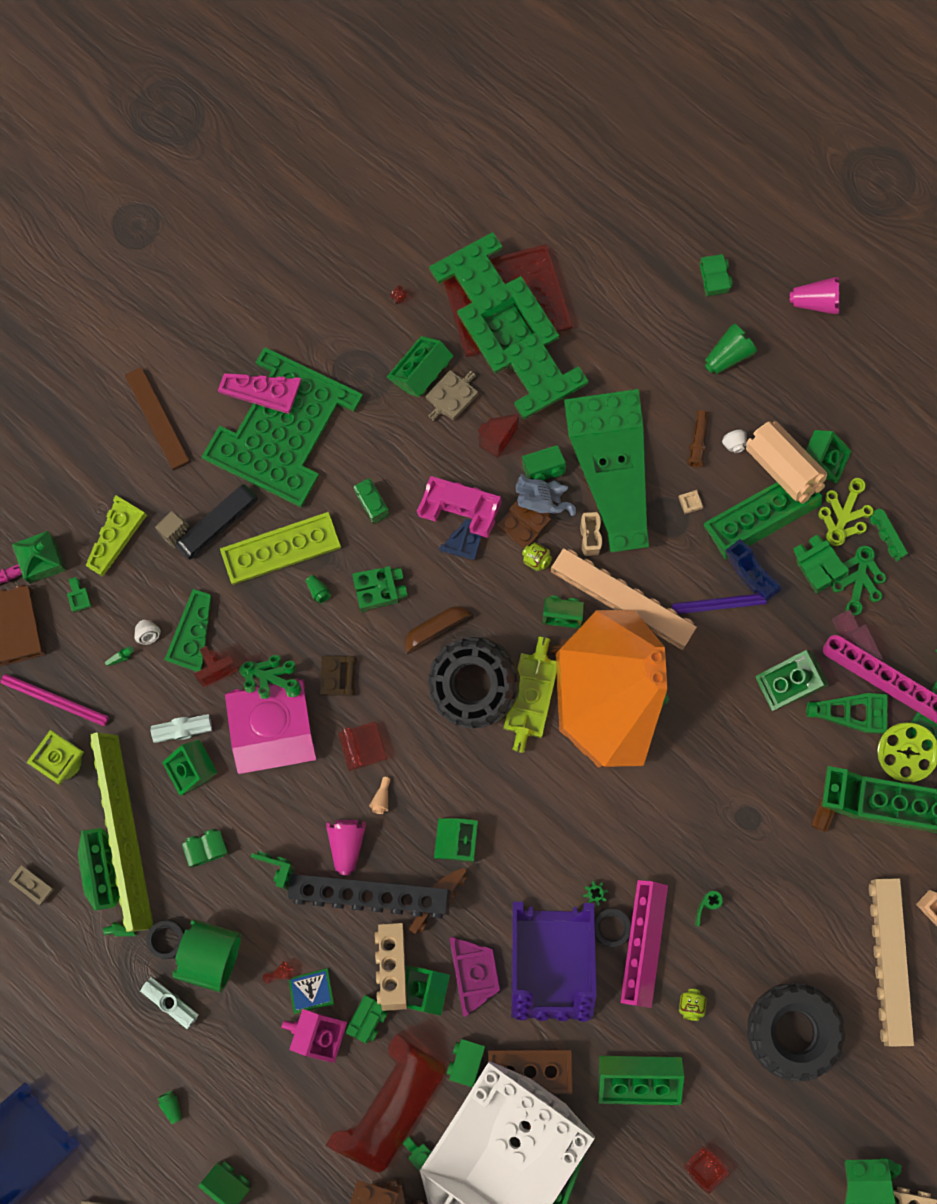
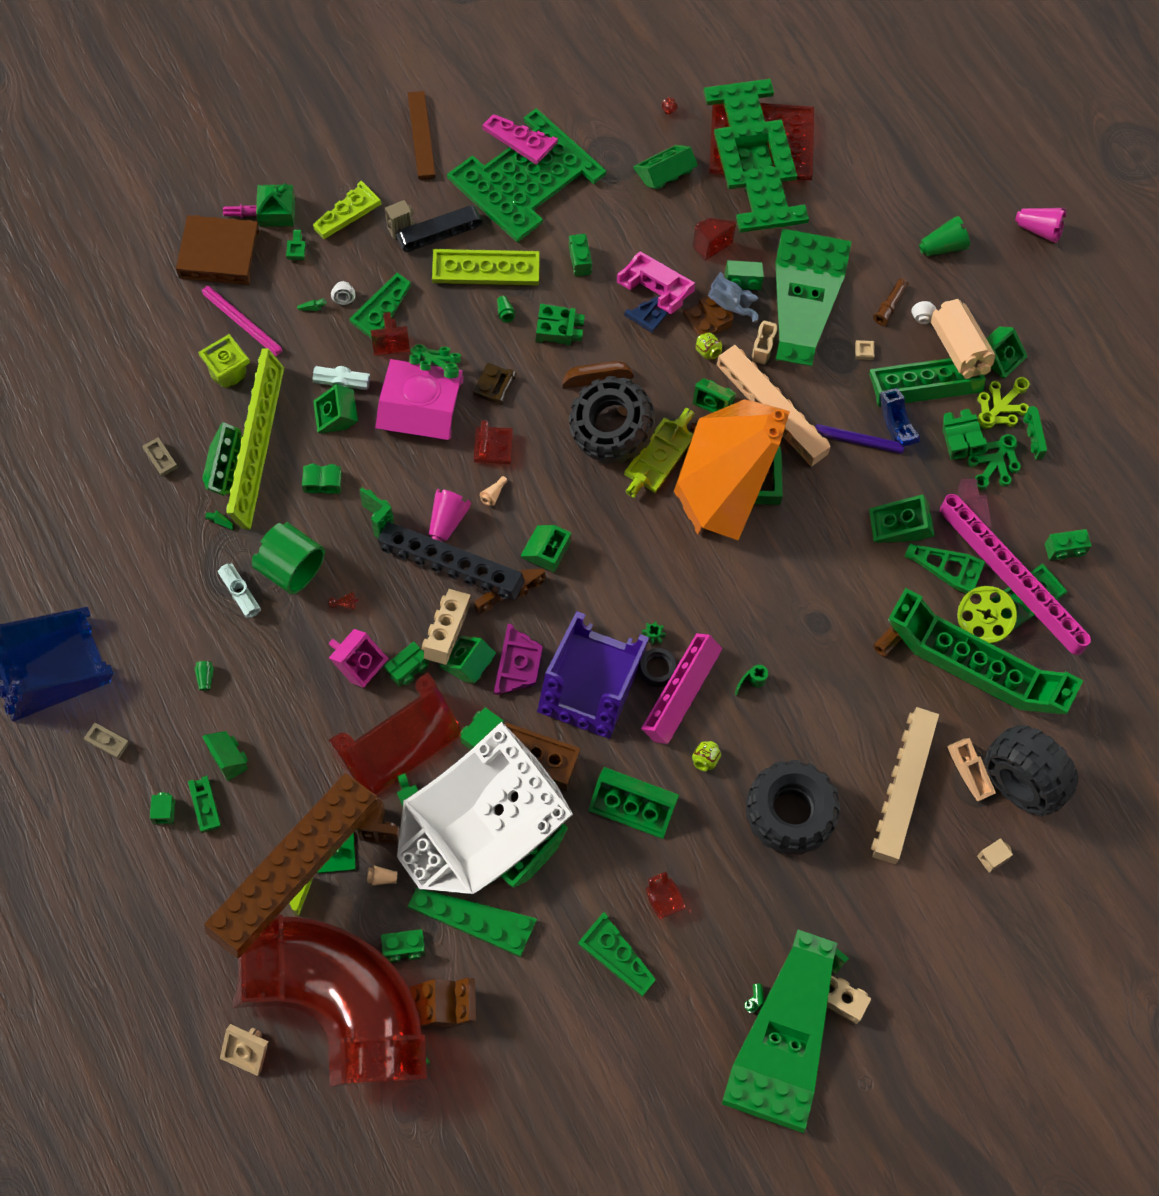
camera: 15 degrees right, 10 degrees down
(150, 939) = (249, 529): black tyre -> none
(311, 991) = (369, 622): piece -> none
(451, 395) = (684, 198): dark tan plate -> none
(715, 275) = (956, 177): green brick -> none

